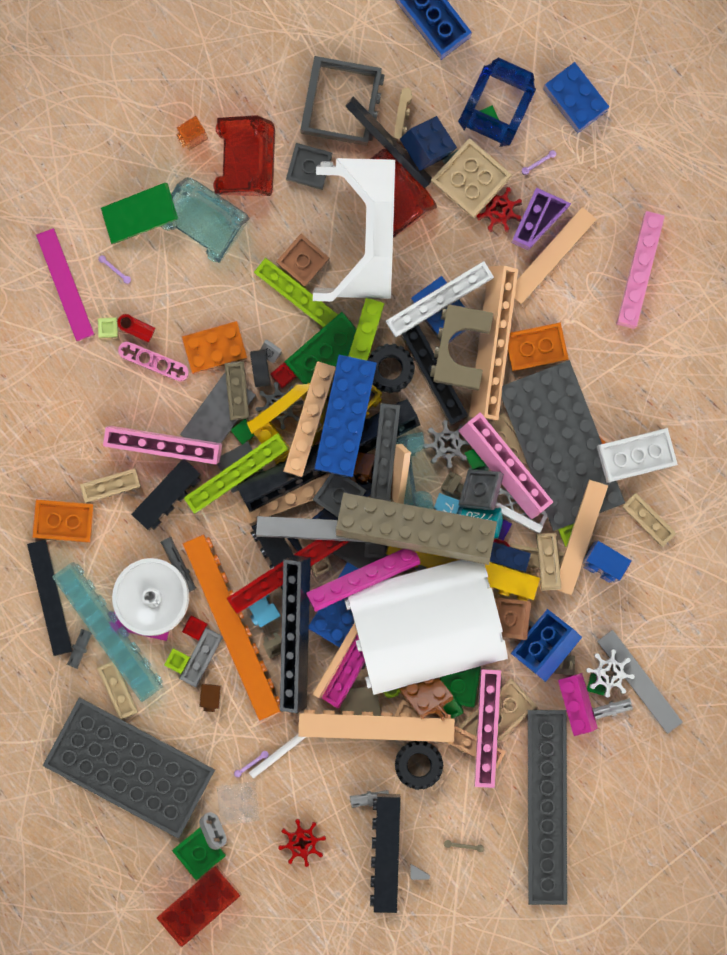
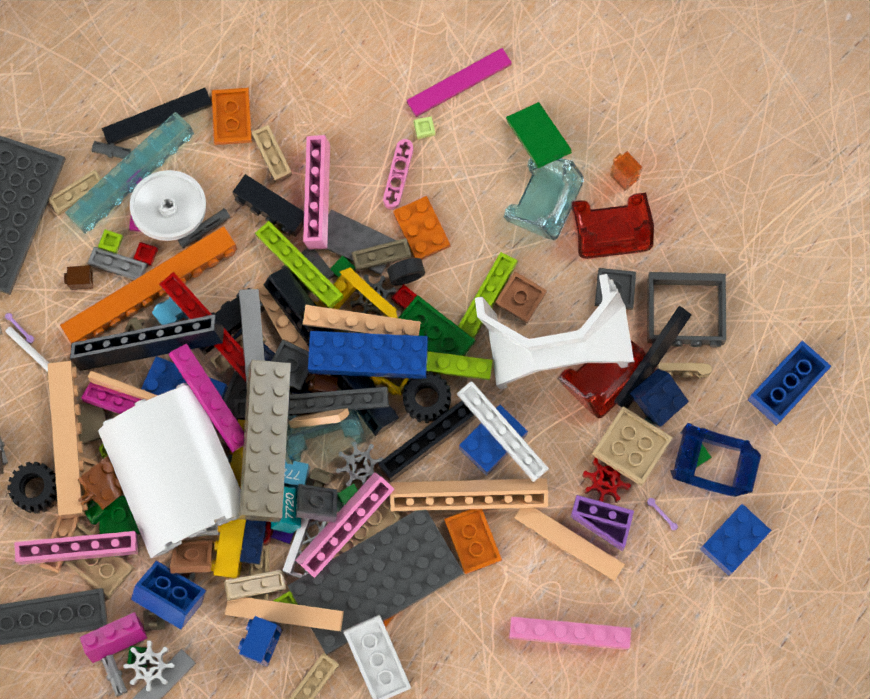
camera: 85 degrees right, 10 degrees down
(126, 279) = (473, 137): lavender hinge -> none
(138, 328) = (427, 152): red piece -> none
(272, 351) = (426, 282): light grey slope -> none
(457, 320) = (481, 447): dark tan arch -> none

